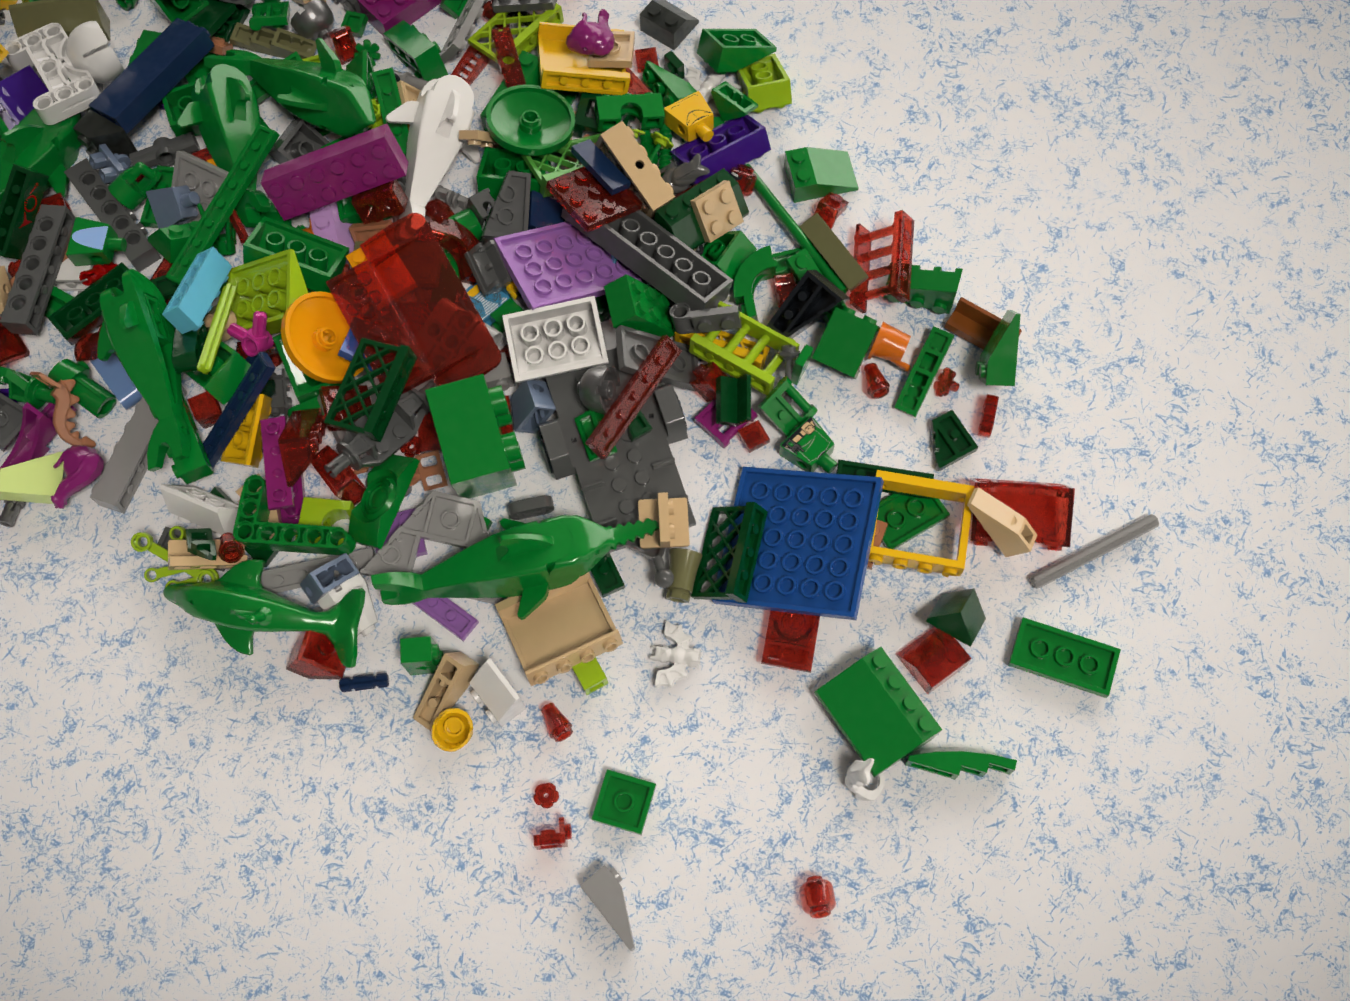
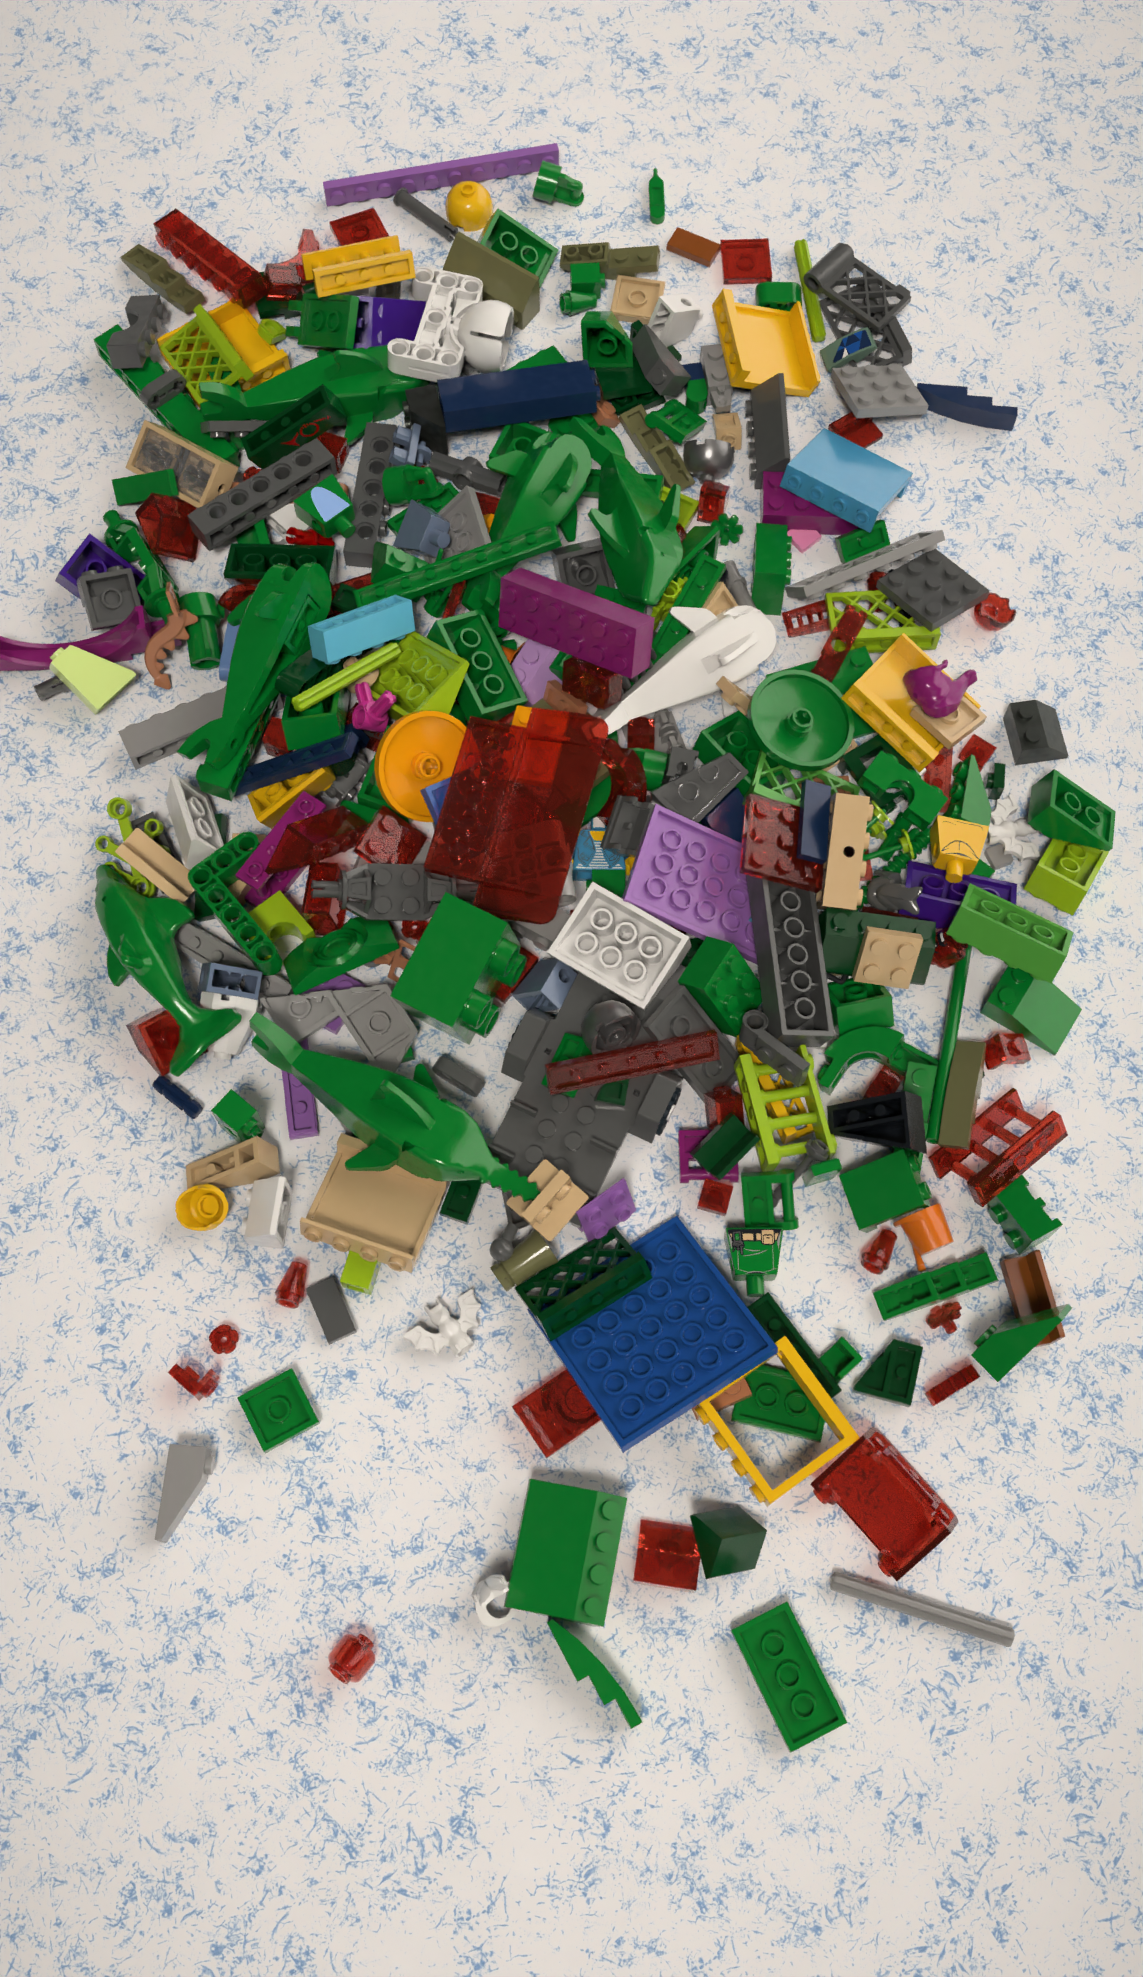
camera: 40 degrees right, 0 degrees up
(82, 467) = (135, 700): magenta piece -> none
(201, 543) = (159, 853): dark green slope -> none
(230, 549) = (175, 881): clear red cone -> none
(356, 22) = (743, 491): green plate -> none
(389, 390) = (423, 863): dark green fence -> none
(421, 22) = (804, 538): none -> bright pink tile
(594, 714) = (331, 1310): none -> dark grey tile
(701, 500) = (606, 1211): none -> medium lavender hinge
(732, 102) = (1012, 864): green slope -> none
(773, 137) = (1010, 934): none -> bright green slope
(916, 457) = (840, 1359): none -> green panel
(1004, 525) = (851, 1497): tan slope -> none

